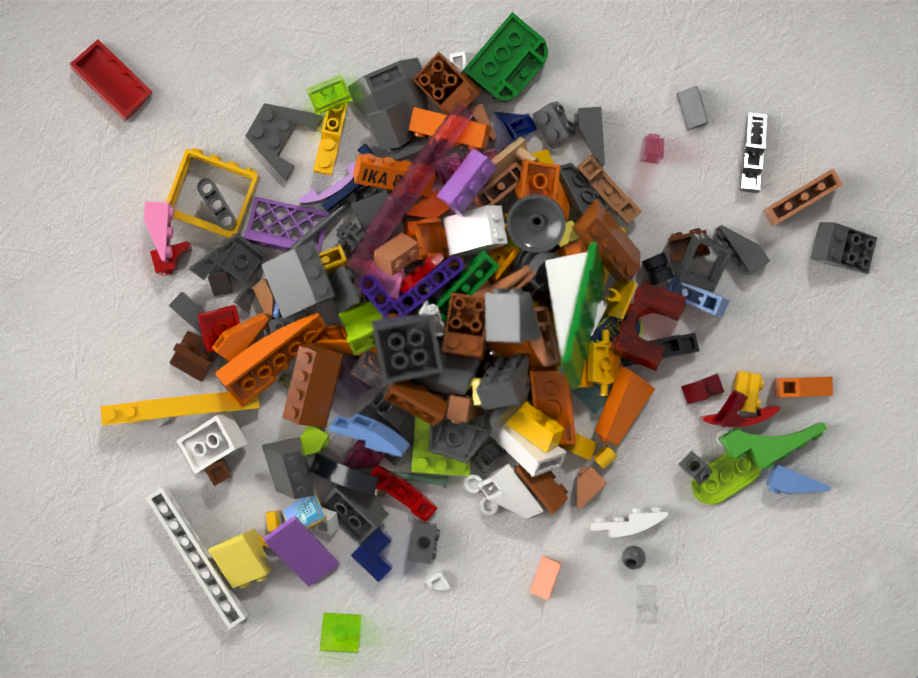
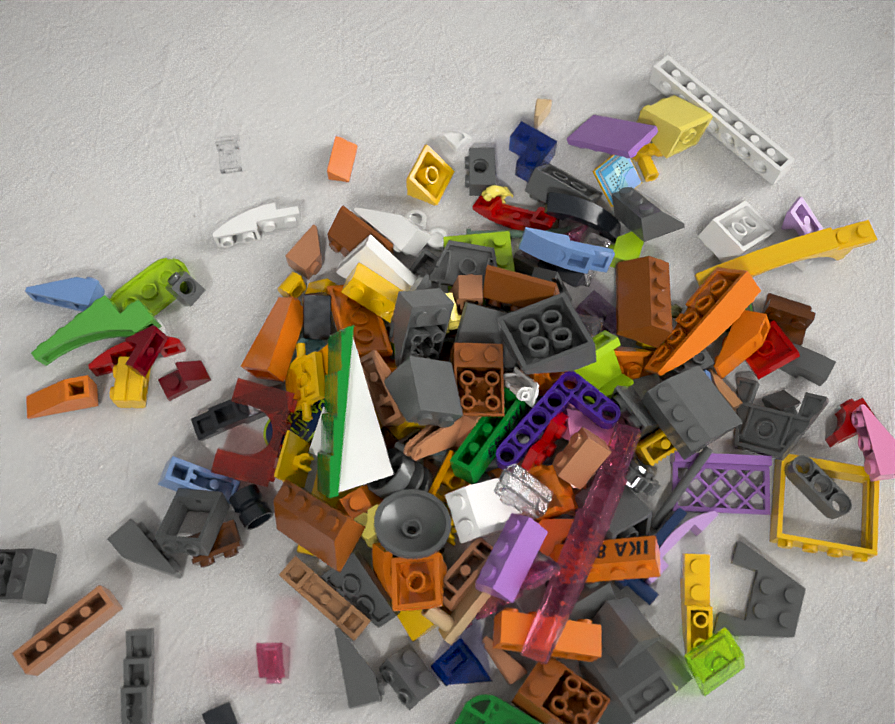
camera: 170 degrees right, 20 degrees down
(152, 440) = (801, 218): none -> lavender slope
(219, 472) = (721, 200): reddish brown brick -> none
(328, 525) = (586, 176): white slope -> none
(340, 633) = (549, 77): clear neon green slope -> none
(357, 596) = (542, 110): none -> tan slope
(416, 516) = (495, 190): none -> light yellow arm
(446, 236) = (523, 492): none -> clear brick
(469, 543) = (428, 177): none -> yellow slope
(586, 420) = (316, 316): none -> black slope
(633, 557) = (247, 190): dark grey piece -> none

